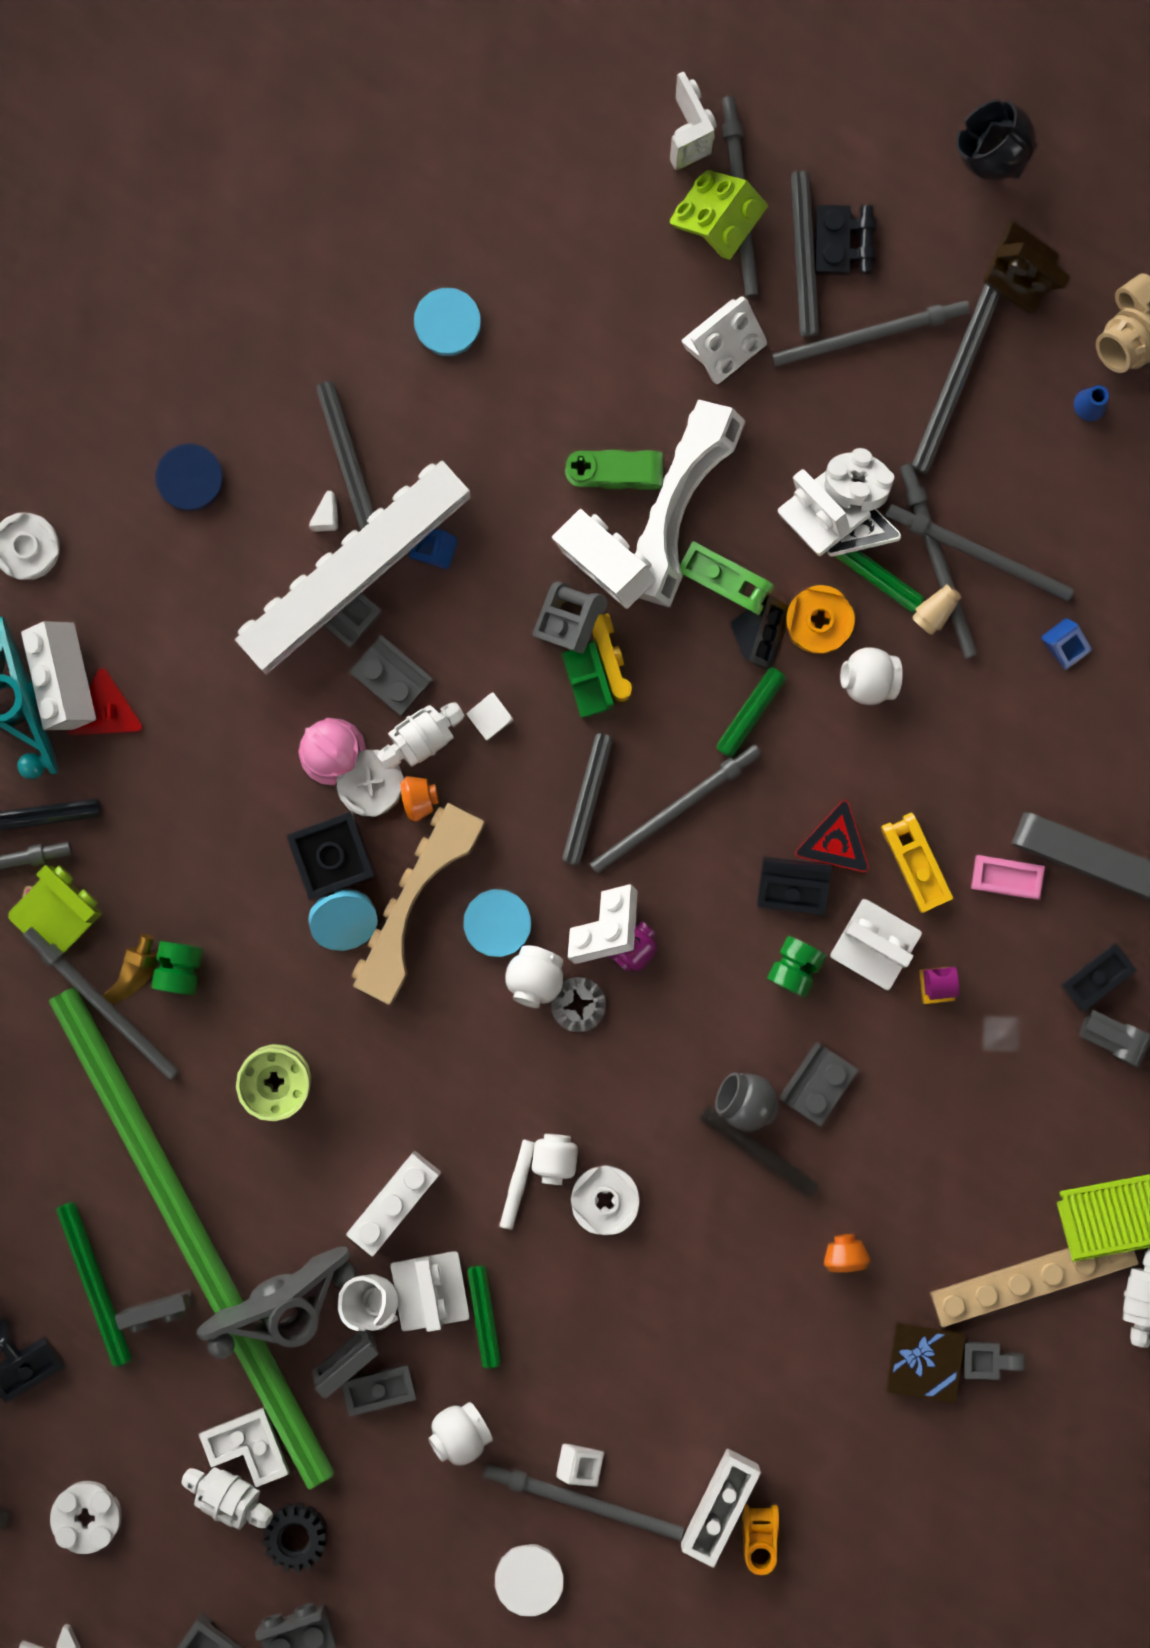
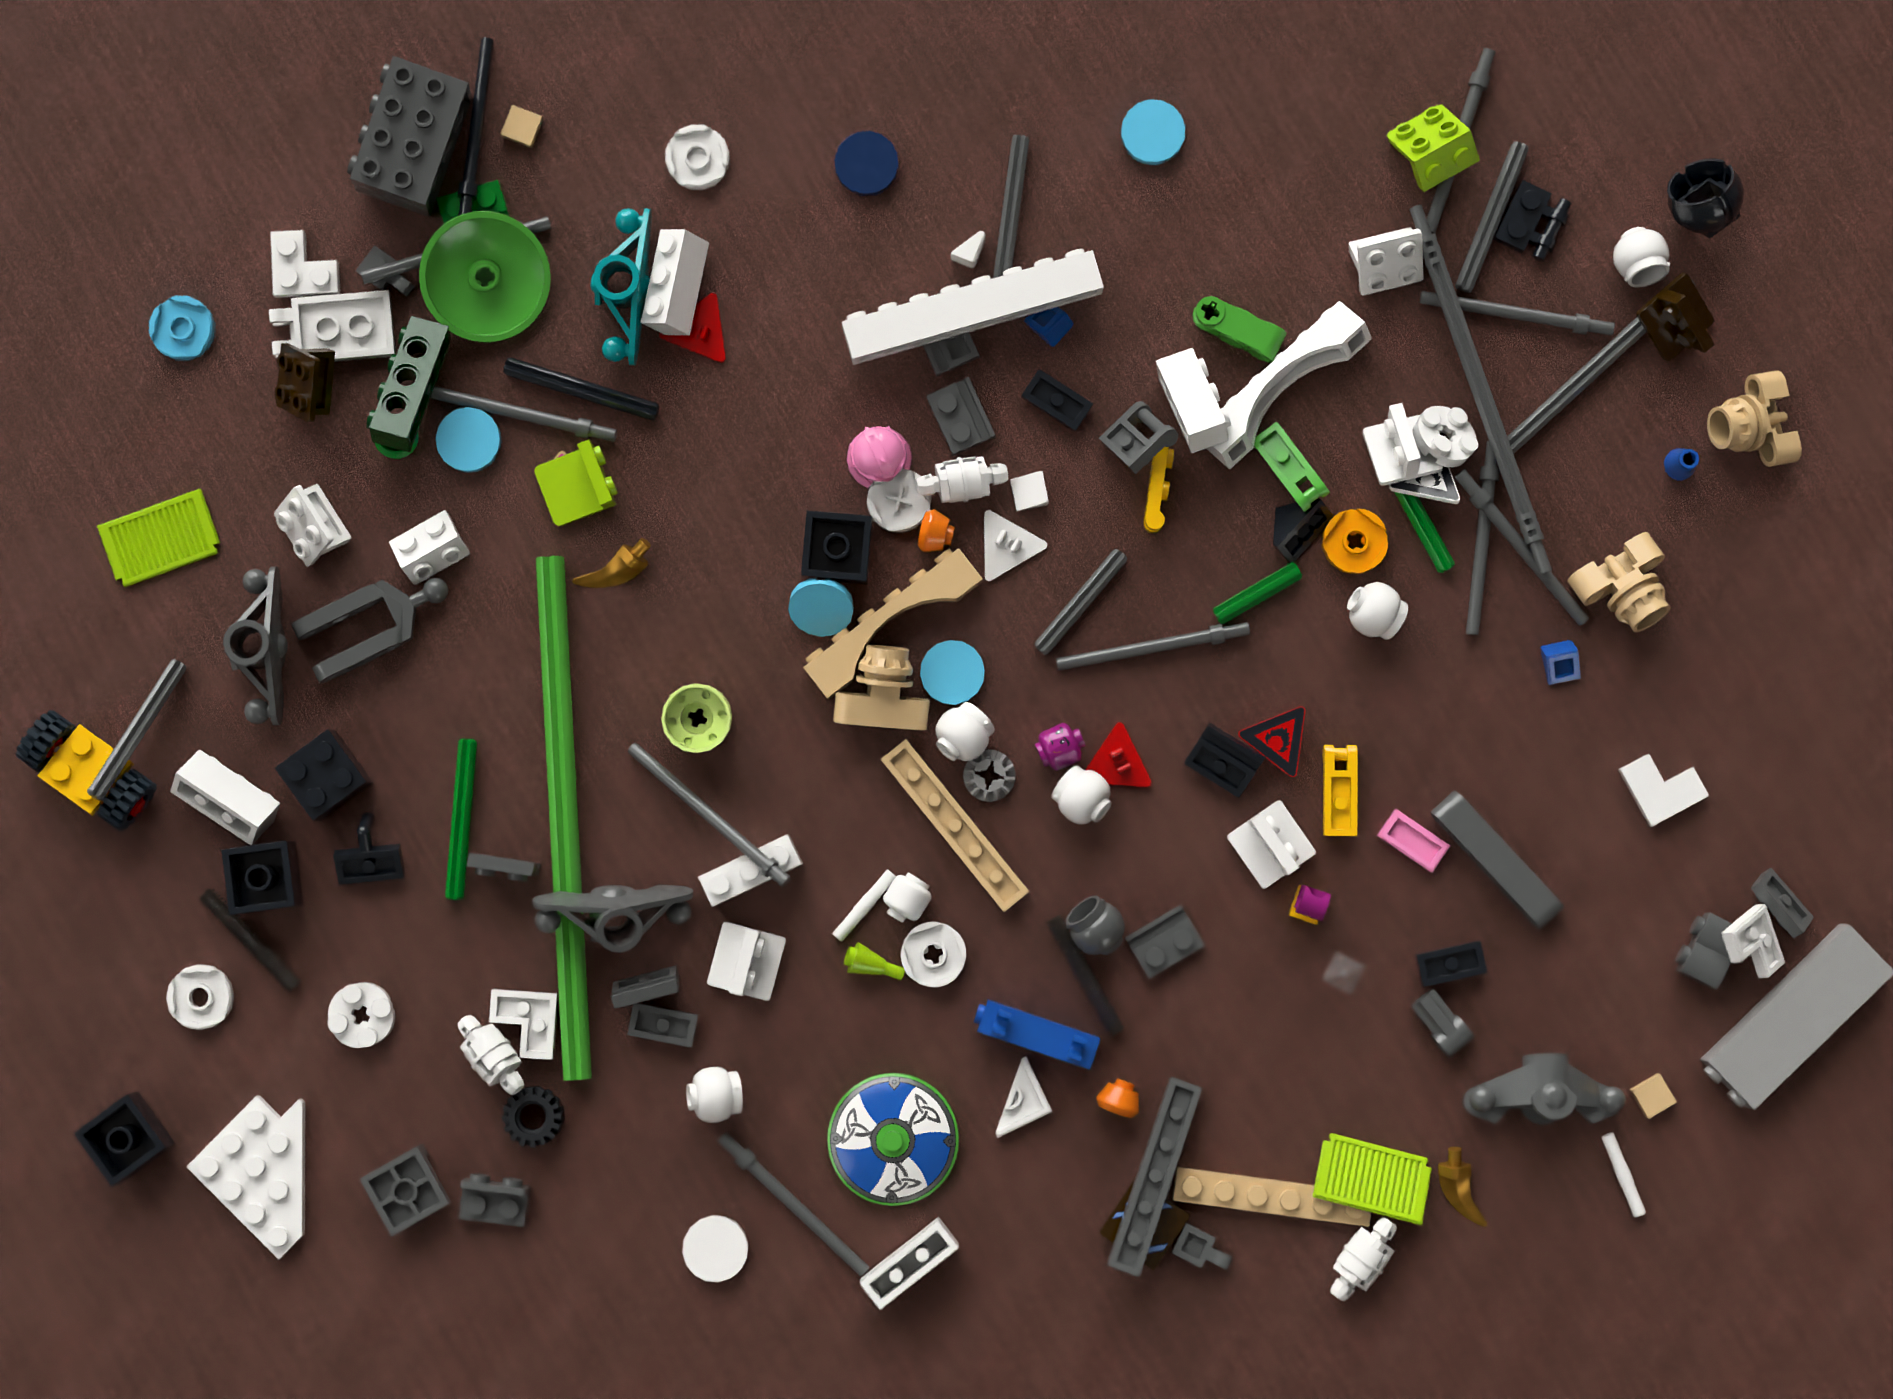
camera: 25 degrees right, 0 degrees up
(52, 956) = (556, 520): dark grey bar -> none
(177, 968) = (659, 581): green wheel -> none
(368, 1303) = (689, 945): white helmet -> none
(408, 1194) = (768, 866): none -> dark grey bar
(445, 986) = (882, 705): none -> tan beam
(475, 618) = (1057, 400): none -> black plate
(484, 1316) = (782, 1005): green axle -> none
(492, 777) = (1007, 545): none -> white piece
(542, 1238) = (865, 961): none -> lime cone
(568, 1068) = (954, 825): none -> tan plate
(579, 1465) = (804, 1171): white slope -> none
(588, 681) = (1129, 500): green panel -> none
(612, 932) = (1047, 726): white plate -> none
(649, 1394) = (893, 1139): none -> dish
(676, 983) = (1082, 796): none -> white piece
(693, 934) = (1119, 760): none -> red piece
(696, 138) = (1443, 73): white bracket -> none
(739, 1229) = (1037, 1033): none -> blue brick
(757, 1299) = (1025, 1101): none -> white tile
(760, 1530) = (933, 1303): light orange piece -> none
(796, 966) = (1193, 831): green wheel -> none
(872, 423) = (1481, 391): none -> dark grey axle
(914, 1315) = (1154, 1177): none -> dark grey plate
(937, 609) = (1461, 579): tan cone -> none
(963, 225) = (1641, 257): none -> white piece
(1110, 549) = (1636, 597): none -> tan beam

